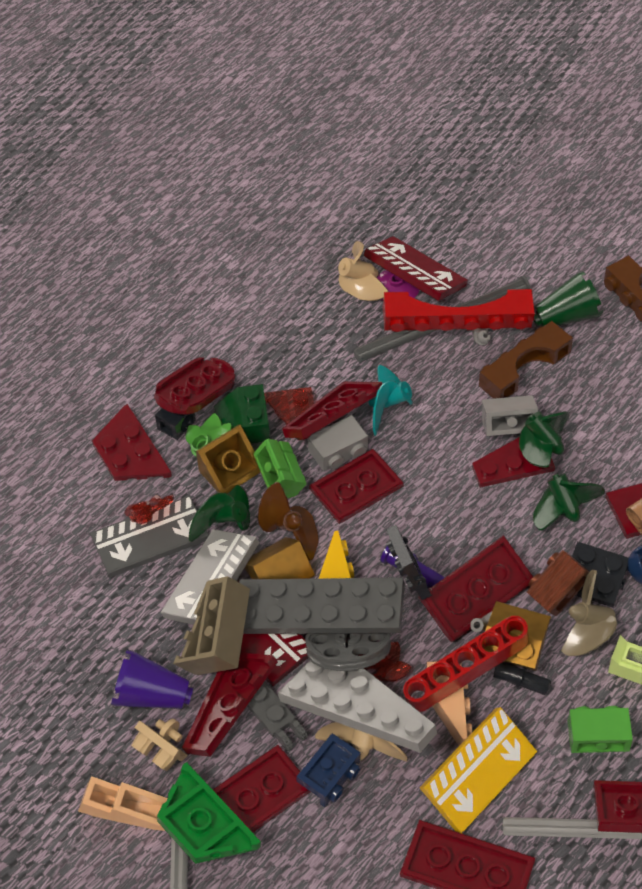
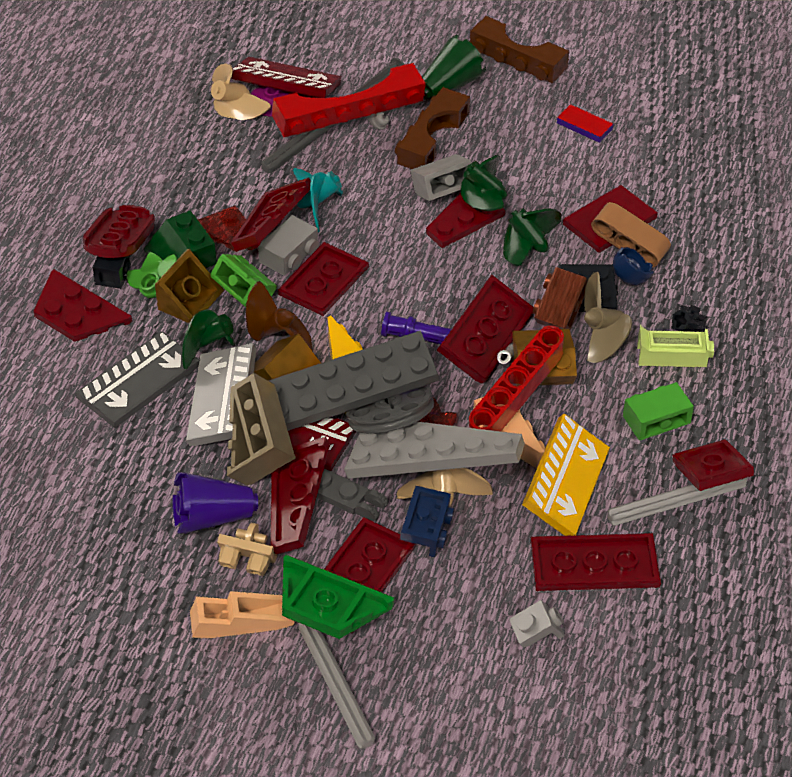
camera: 25 degrees left, 5 degrees down
(143, 511) = (125, 354): clear red plate -> none
(407, 563) = (419, 316): black plate -> none
(522, 678) = (565, 391): black axle -> none

